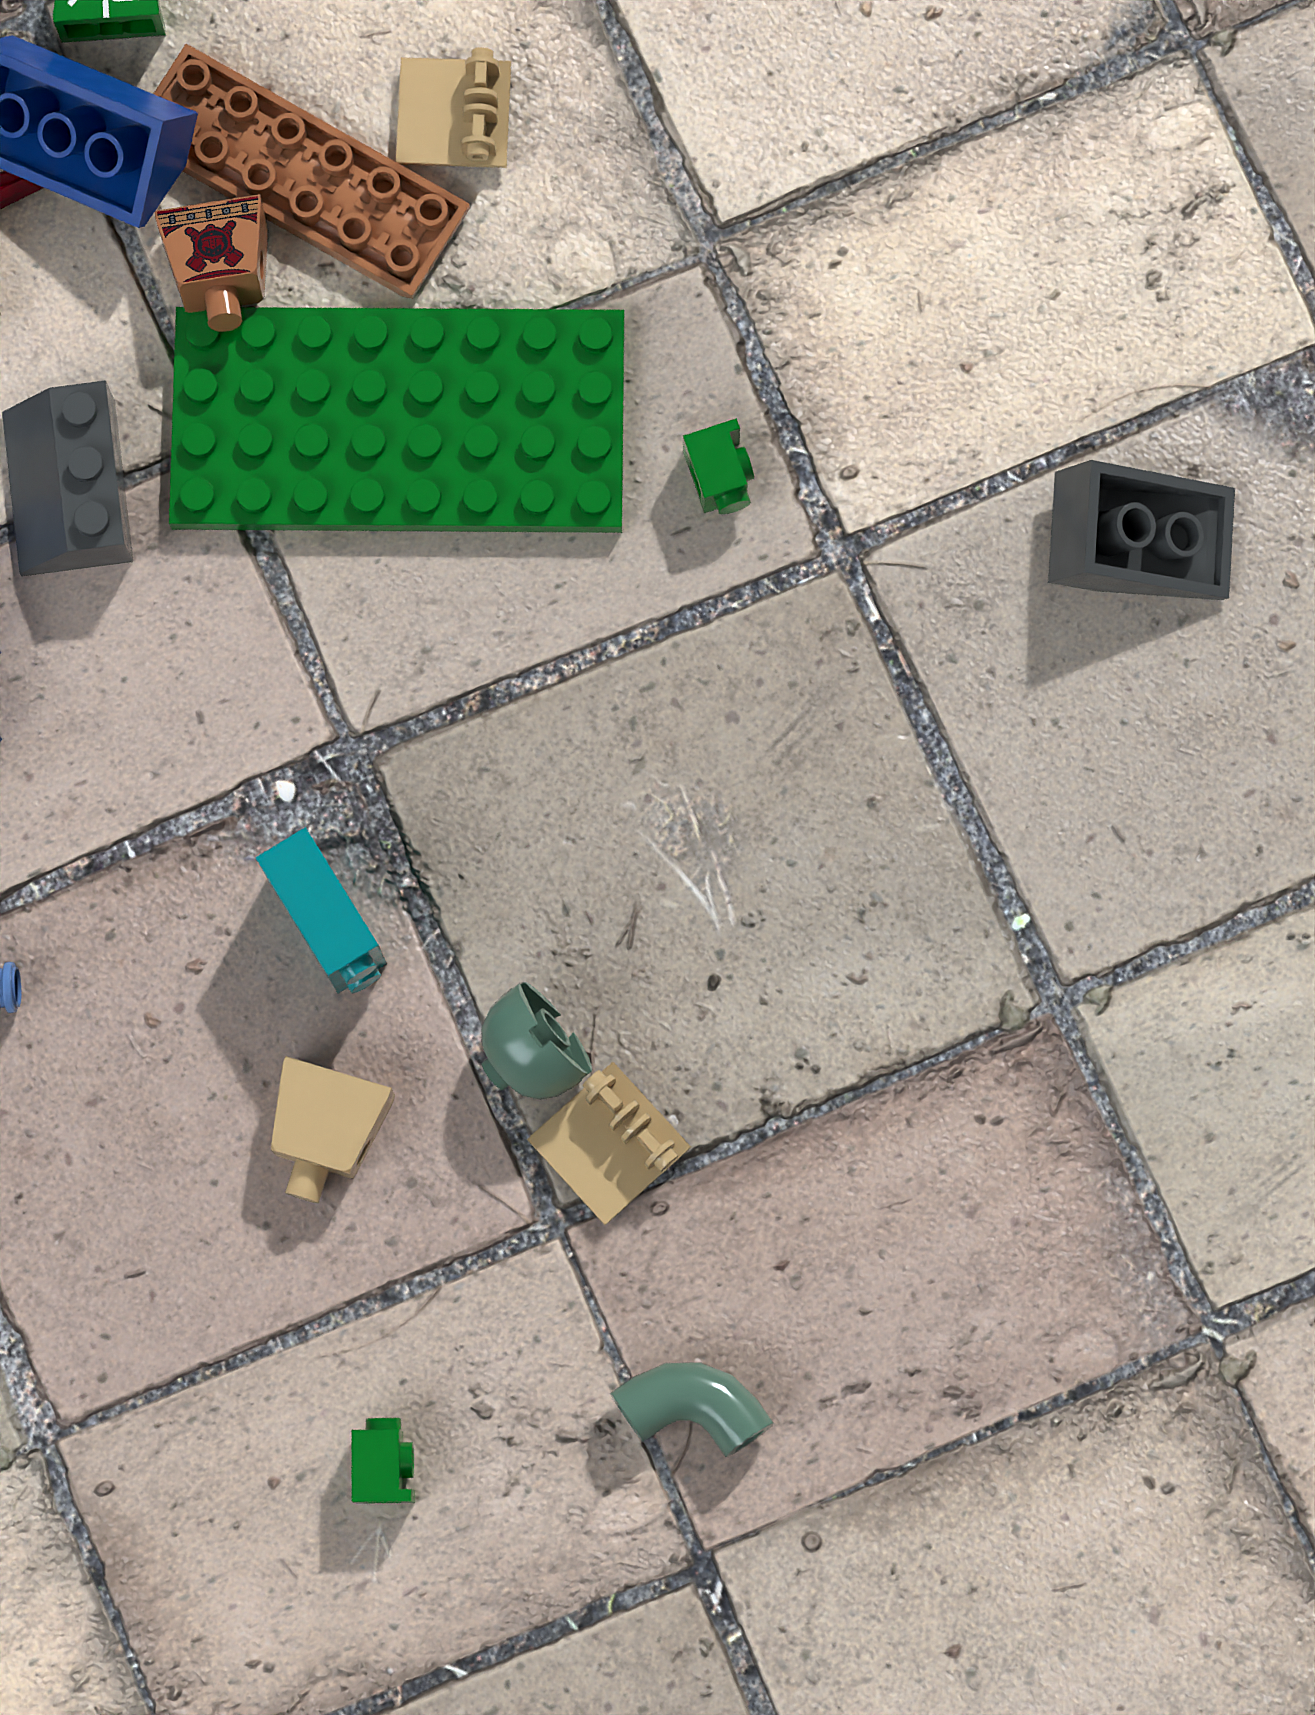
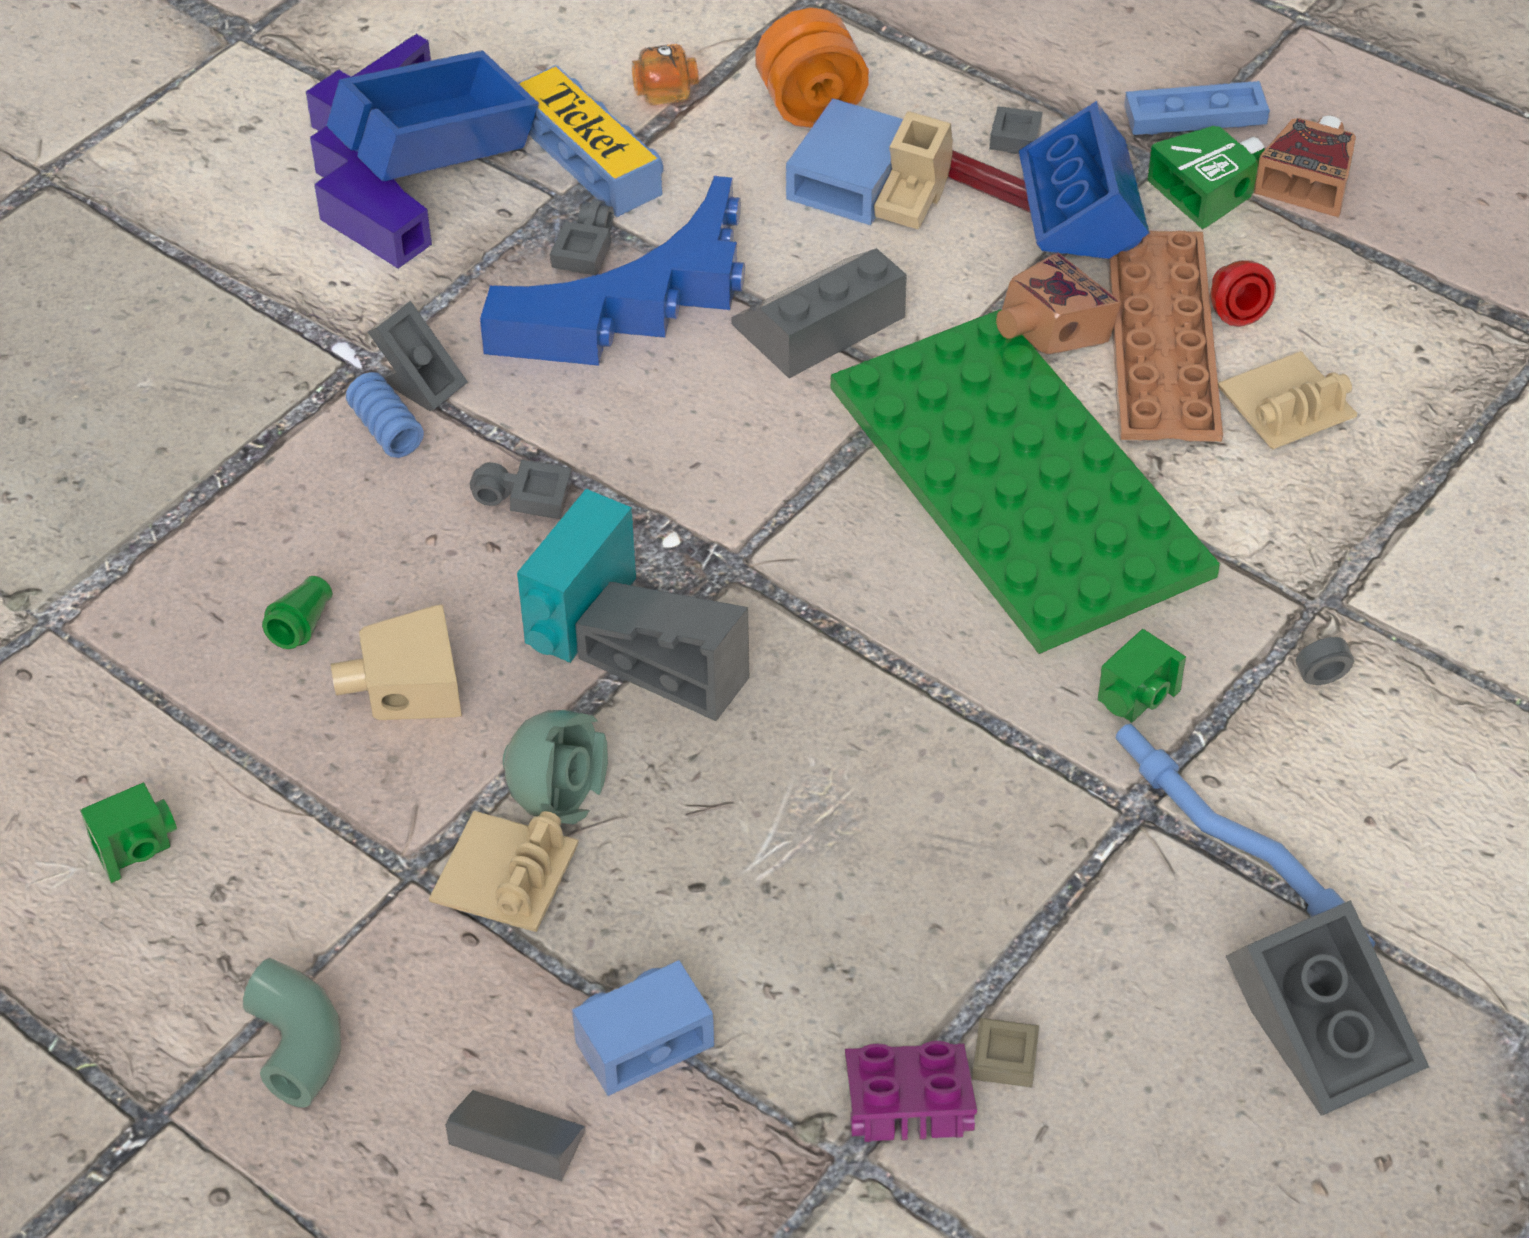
camera: 60 degrees right, 30 degrees down
(158, 887) = (534, 490): none -> dark grey plate
(192, 1195) = (294, 616): none -> green cone
(295, 64) = (1242, 292): none -> red brick
(442, 870) = (669, 645): none -> dark grey wedge
(792, 294) = (1325, 661): none -> dark grey tile
(822, 511) = (1162, 773): none -> medium blue bar
(852, 1107) = (643, 1027): none -> medium blue brick
(890, 1263) = (514, 1134): none -> dark grey slope
(1027, 916) = (907, 1084): none -> magenta hinge
(1032, 817) = (1005, 1052): none -> dark tan tile

